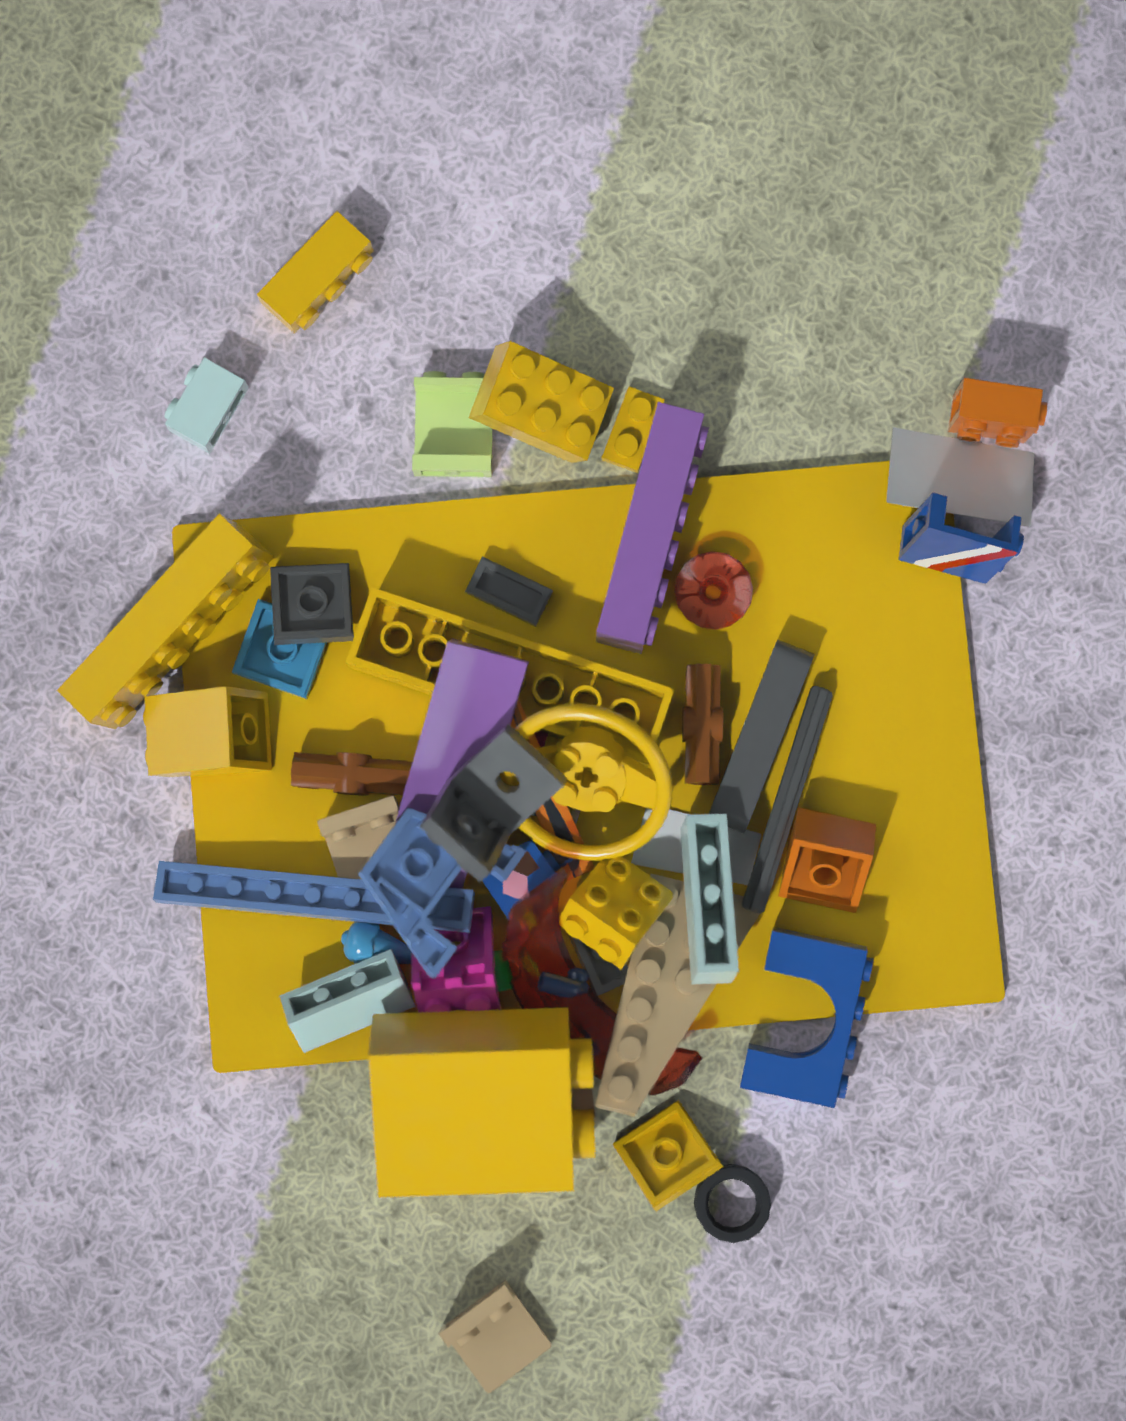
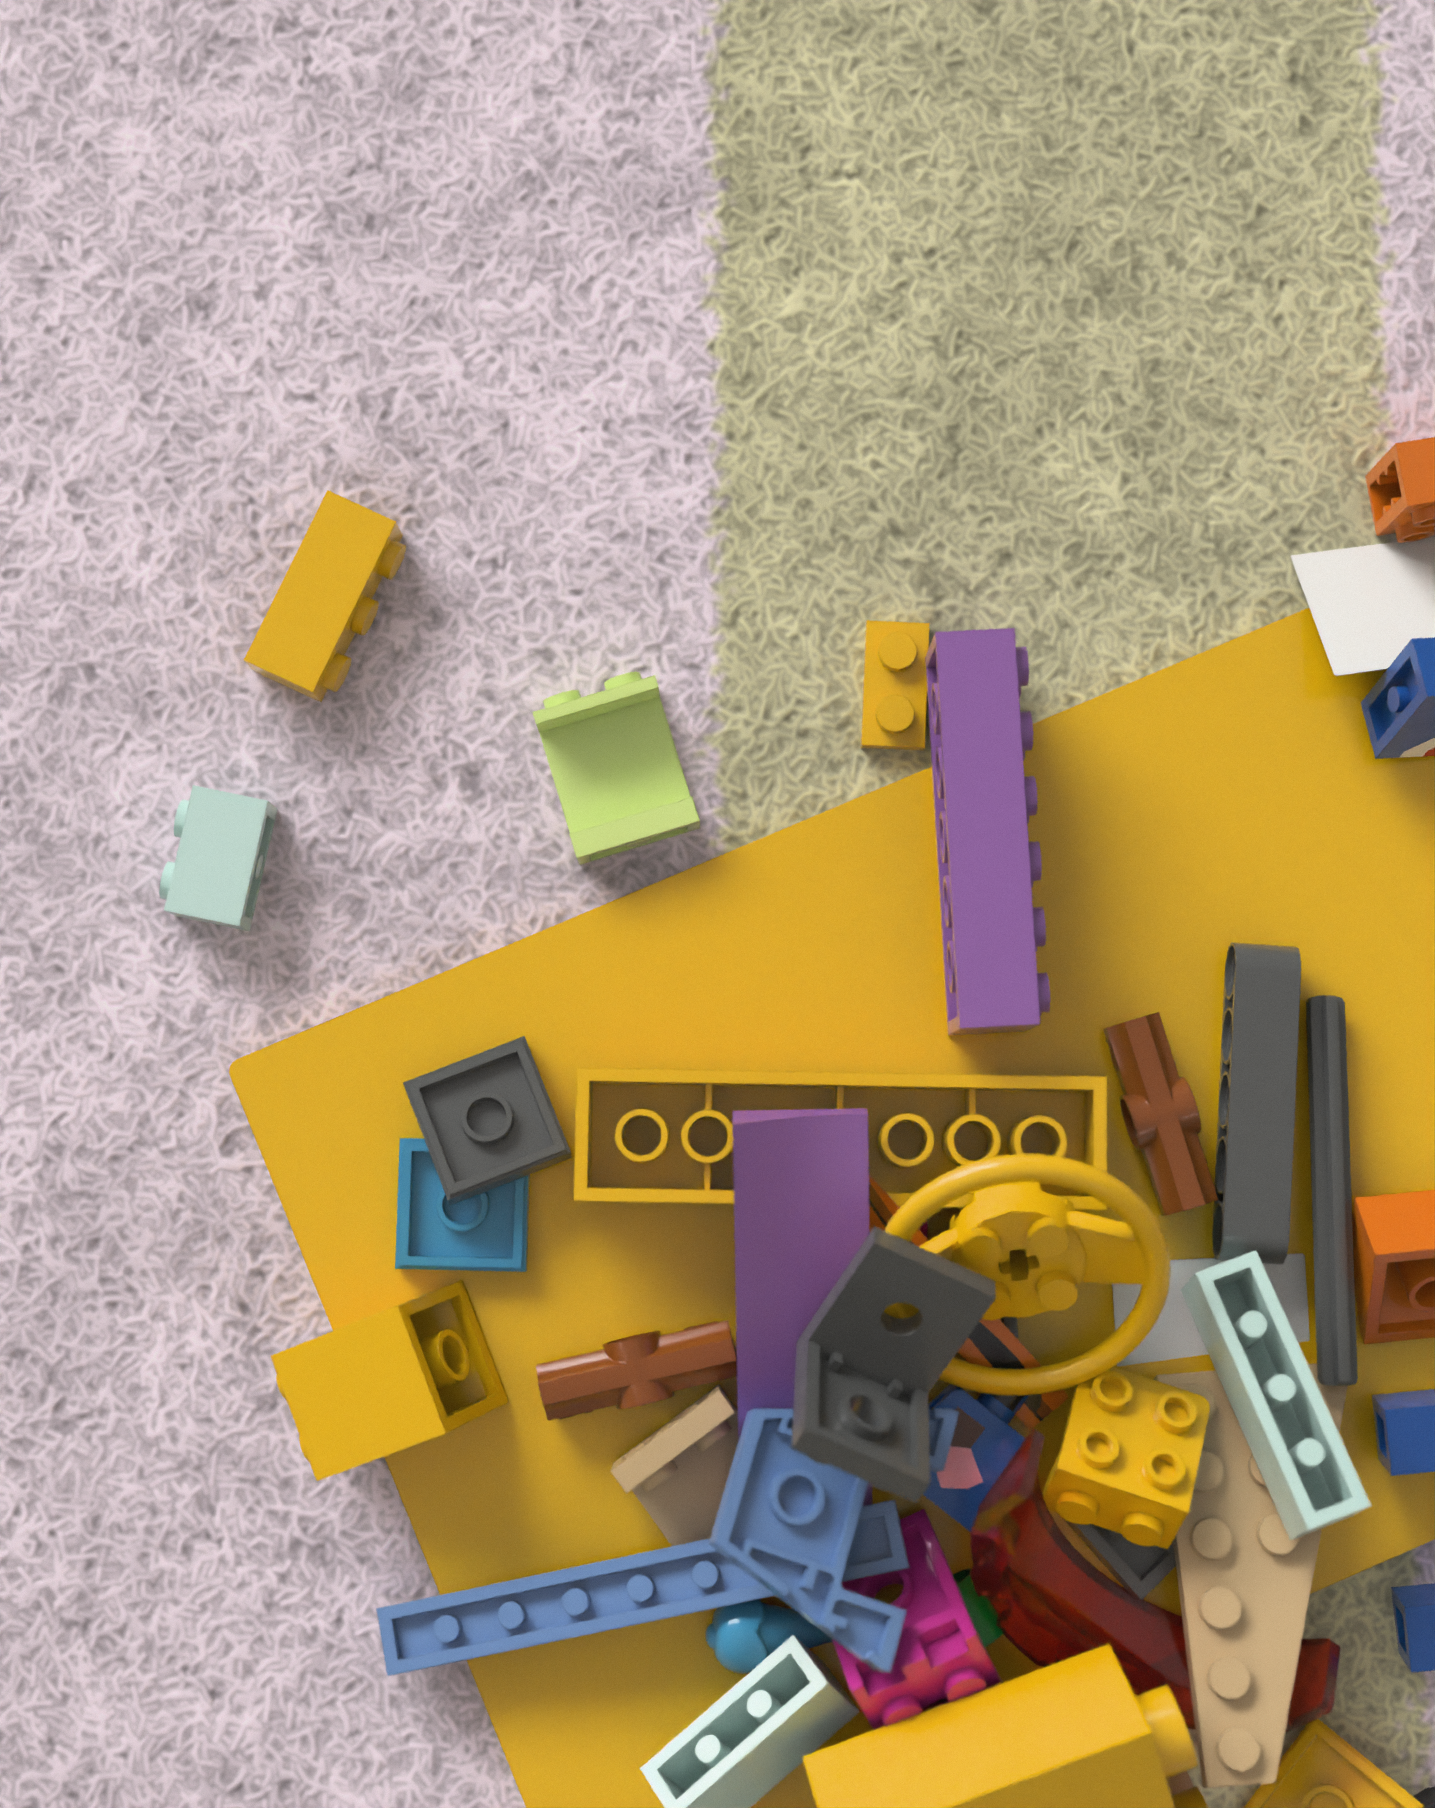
camera: 20 degrees left, 0 degrees up
(166, 624) = (267, 1231): yellow brick -> none
(509, 591) = (788, 1000): dark grey tile -> none
(541, 402) = (744, 689): yellow brick -> none
(567, 987) = (1090, 1607): dark blue arm -> none
(719, 571) = (1140, 893): clear red dish -> none

